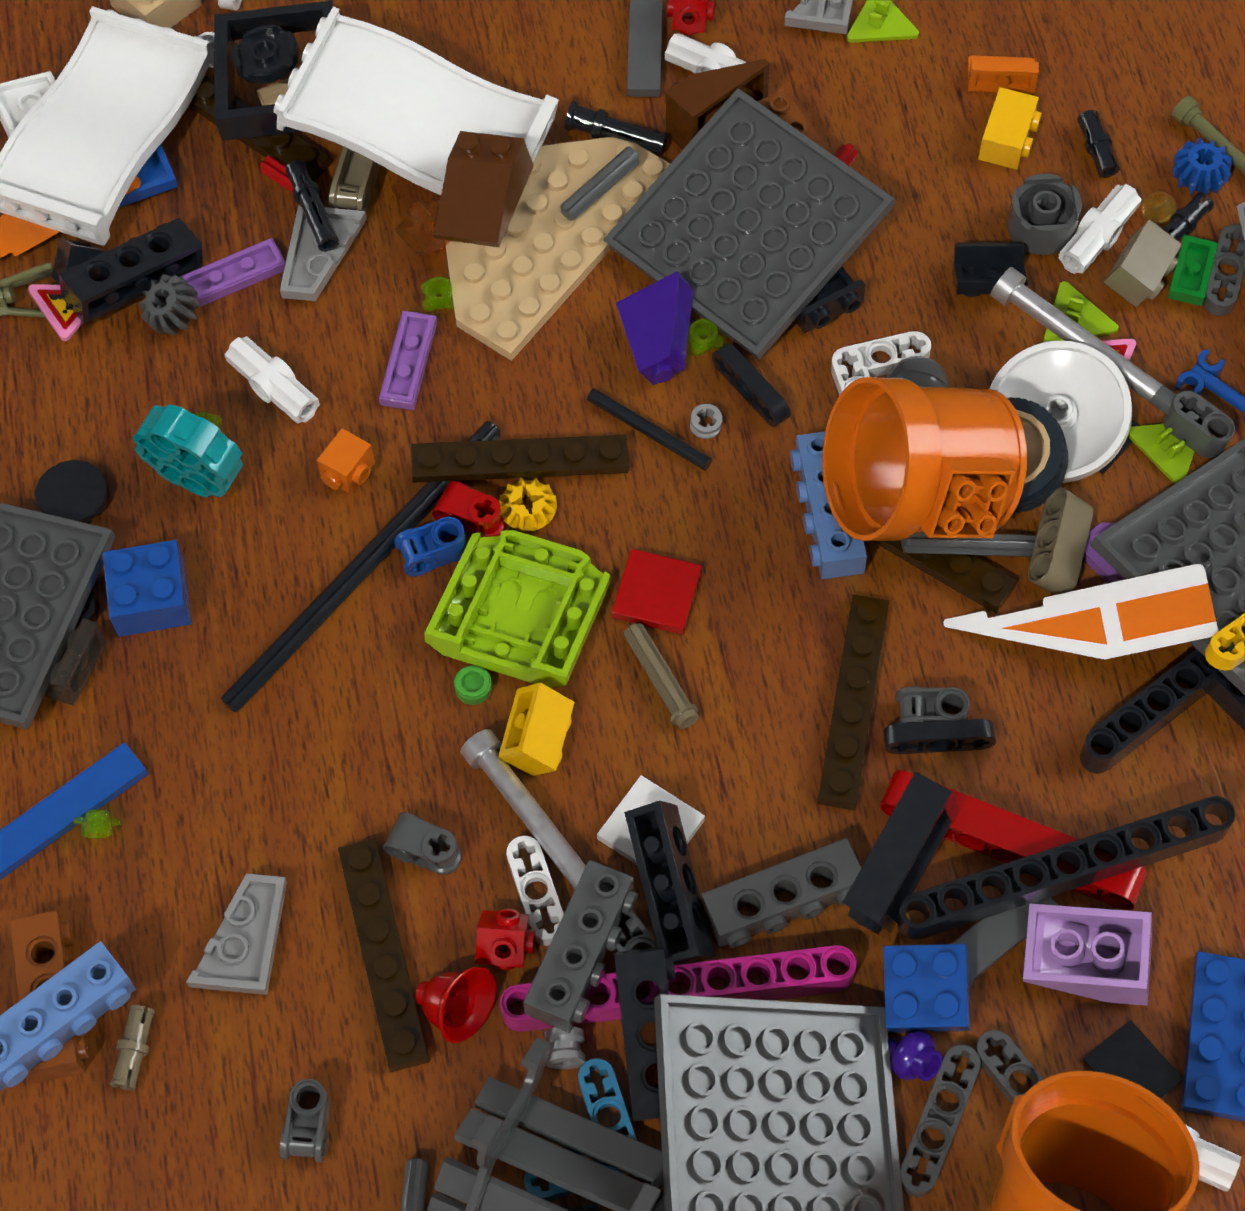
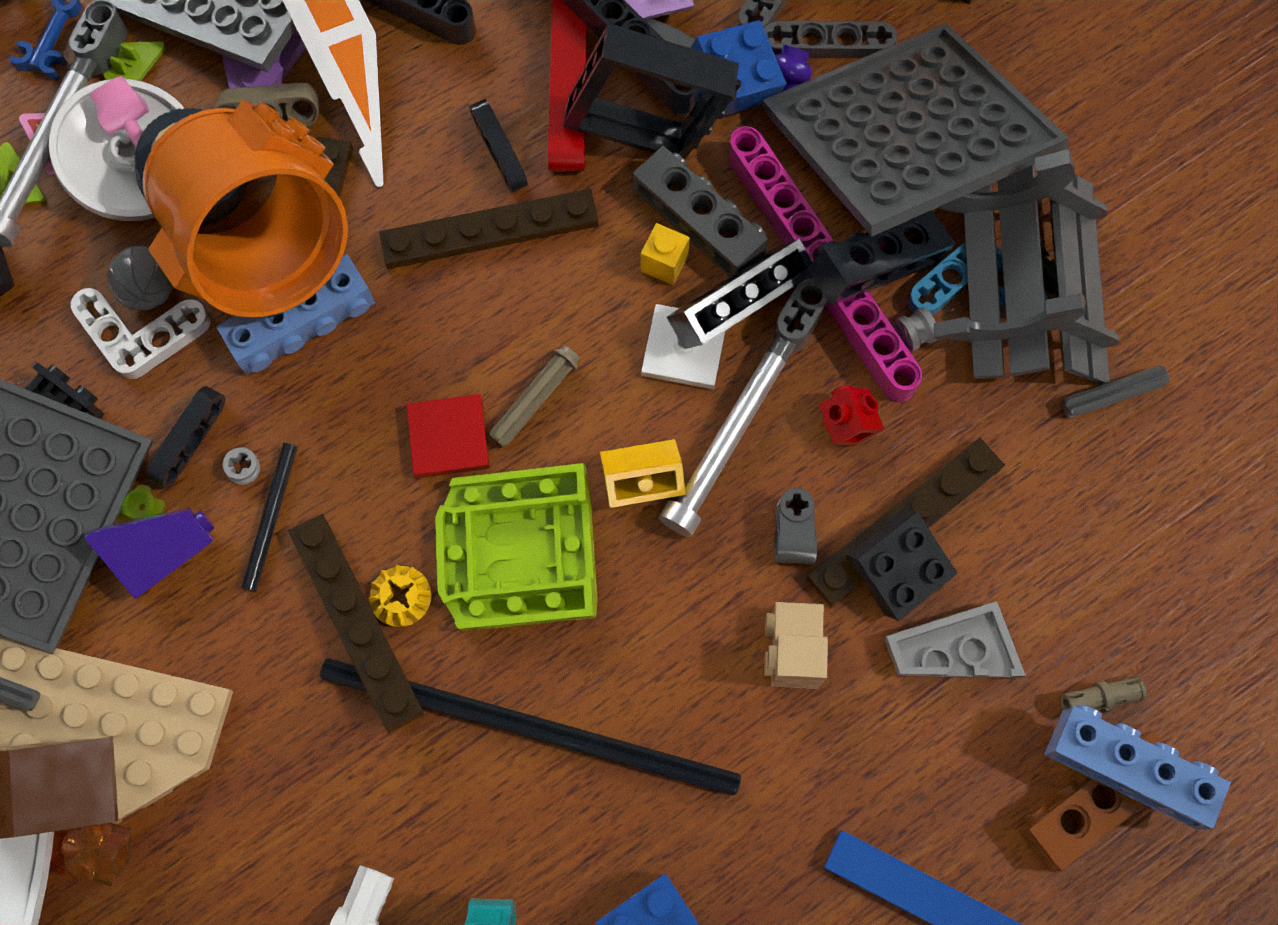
camera: 115 degrees left, 10 degrees up
(97, 824) = (919, 847): clear neon green plate -> none
(306, 1130) = (1091, 508): dark grey piece -> none
(310, 795) = (797, 646): none -> tan brick
(339, 915) = (902, 564): none -> black brick
(346, 462) = (425, 797): orange brick -> none
(408, 360) = (271, 798): medium lavender tile -> none
(430, 546) = (488, 665): blue piece -> none
(437, 286) = (167, 806): clear neon green plate -> none
(458, 1002) = (925, 435): red hat -> none
(471, 509) = (432, 652): red piece -> none
(473, 685) = (614, 561): bright green tile -> none
(537, 862) = (761, 426): white beam -> none
(579, 947) = (839, 334): dark grey brick -> none
(750, 840) = (664, 254): none -> yellow brick
(929, 704) = (476, 162): dark grey piece -> none
(1091, 408) = (119, 108): none -> bright pink piece

